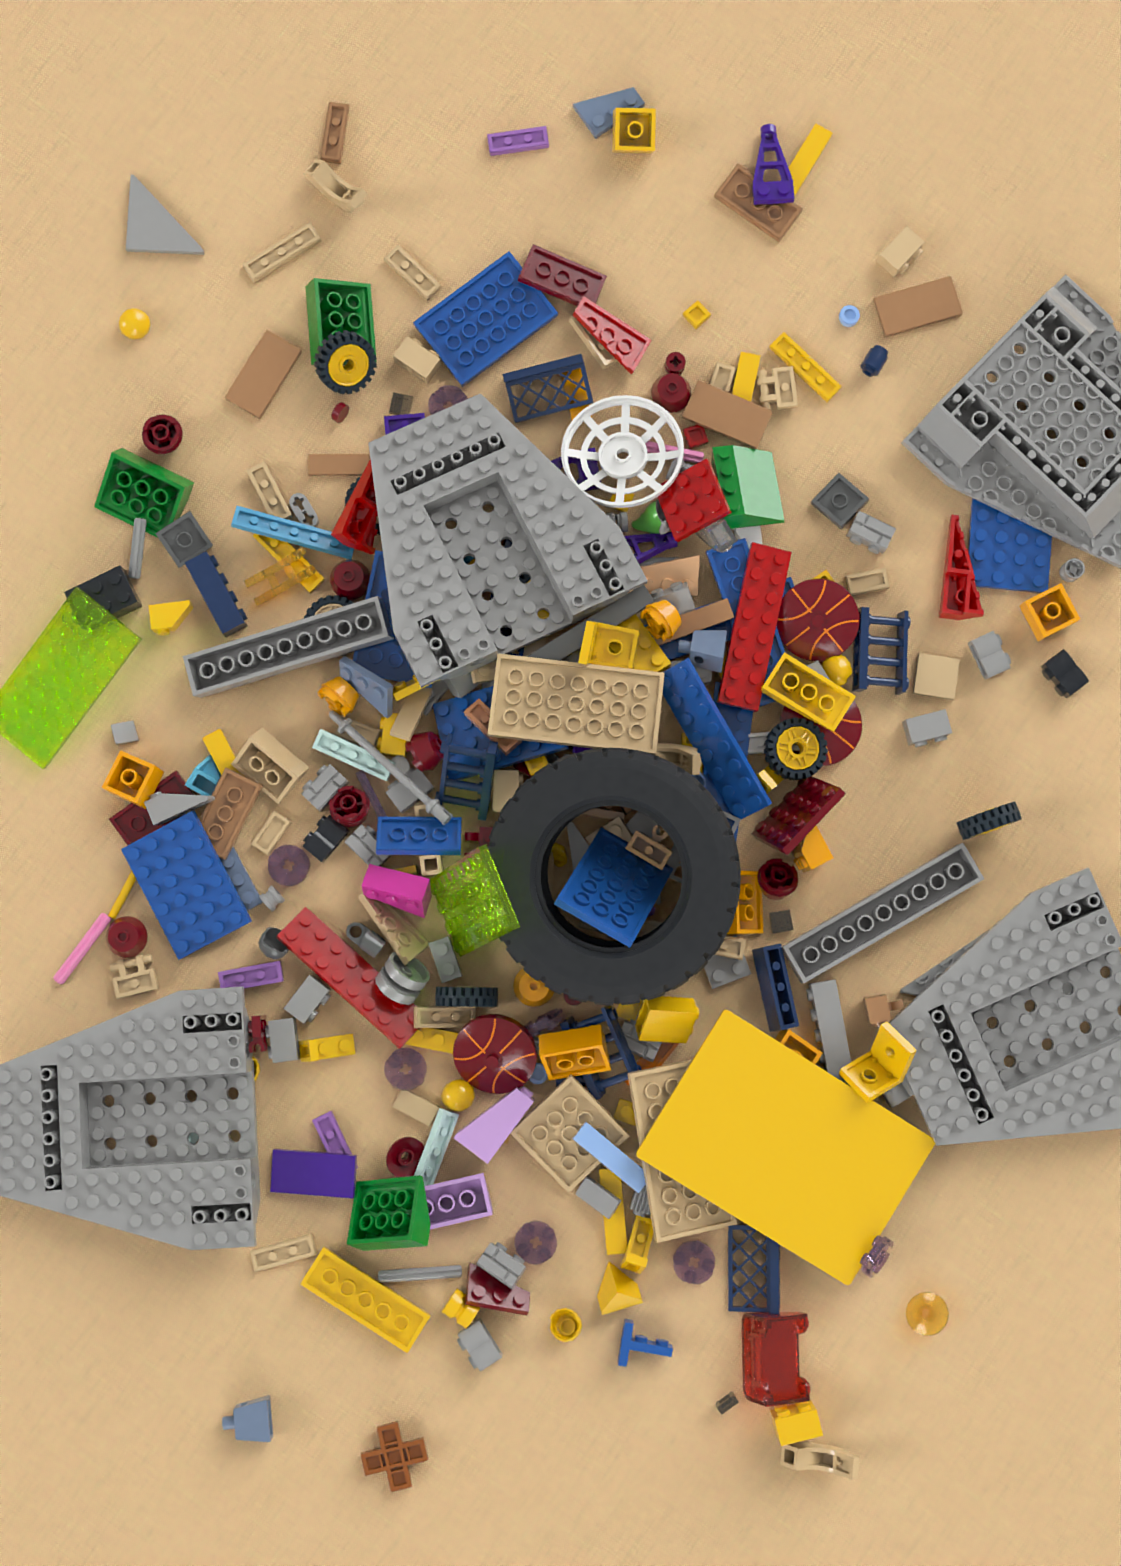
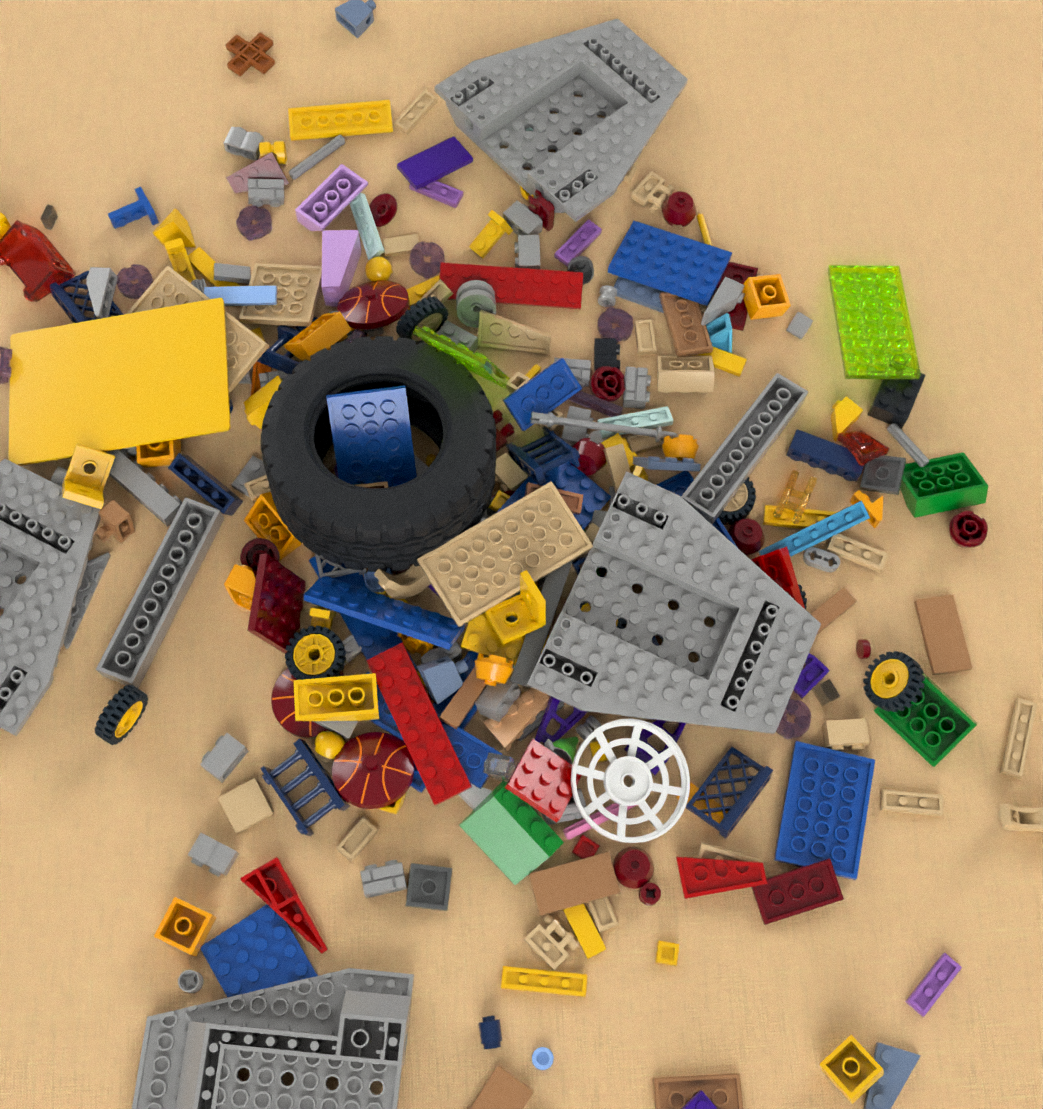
camera: 140 degrees right, 15 degrees down
(82, 948) = (700, 185): bright pink axle -> none
(180, 574) = (862, 446): none -> clear red plate
(222, 515) = (874, 509): none -> light orange slope
(368, 940) = (522, 314): dark grey piece -> none
(389, 1214) = (363, 163): green slope -> none
(398, 889) = (527, 353): dark pink wedge -> none
(565, 1324) = (195, 189): yellow hair -> none
(734, 1270) = (101, 288): none -> light grey slope
(781, 921) = (236, 536): clear smoke tile -> none
(1064, 674) = (139, 887): black brick -> none

